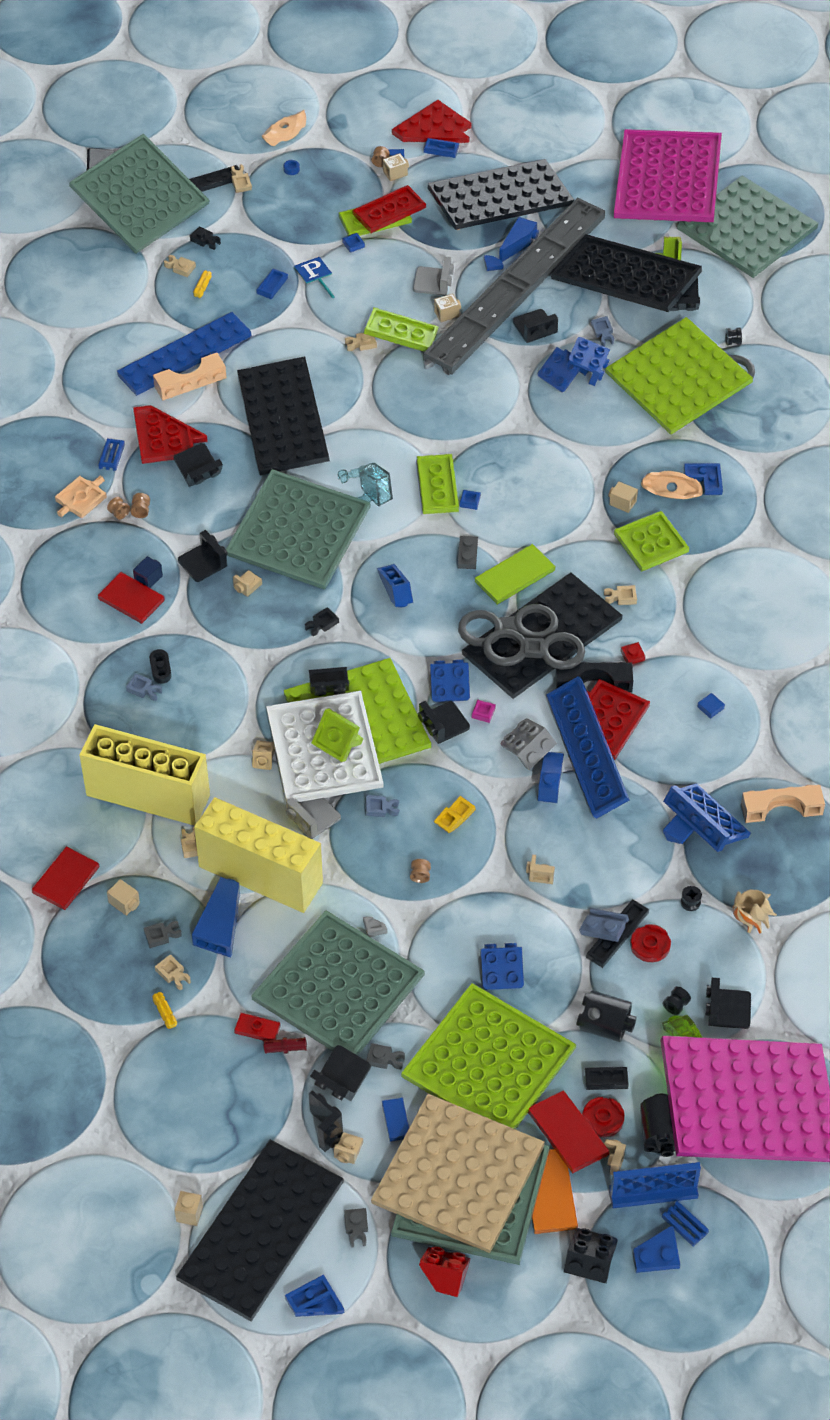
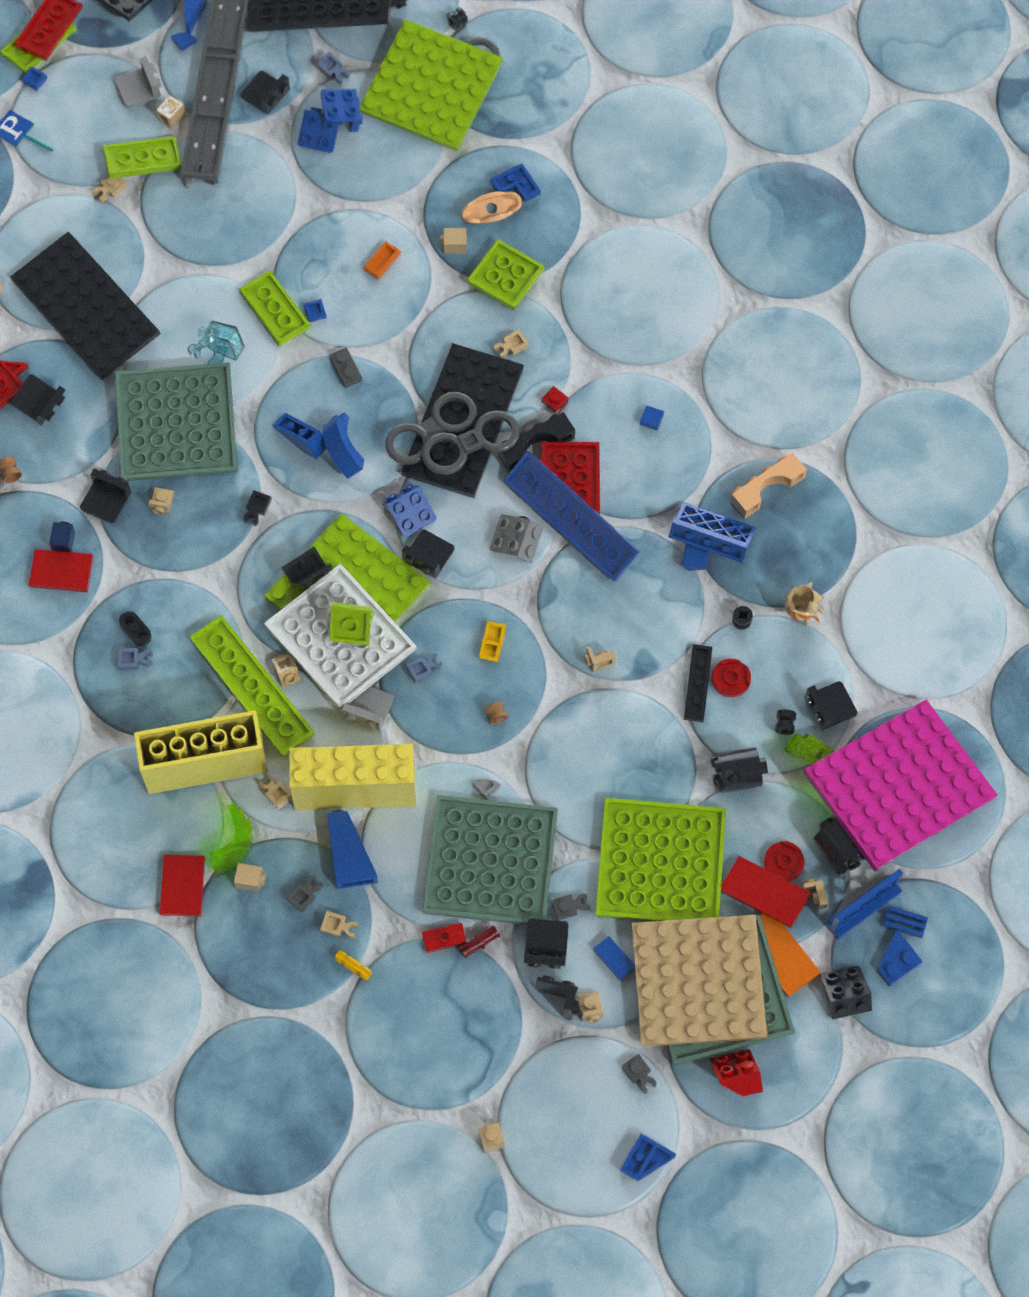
camera: 30 degrees left, 15 degrees up
(130, 869) = (228, 857): none -> clear neon green arch
(226, 747) = (252, 685): none -> lime plate
(260, 1230) = (561, 1121): black plate -> none
(420, 605) = (340, 446): none -> blue arch
(483, 711) = (456, 524): dark pink tile -> none
(502, 966) = (620, 767): blue bracket -> none
(515, 574) = (402, 369): lime tile -> none
(550, 777) = (555, 560): blue slope -> none
(551, 486) = (382, 260): none -> orange tile
(604, 925) = (684, 682): sand blue plate -> none
(606, 1078) = (767, 825): black plate -> none

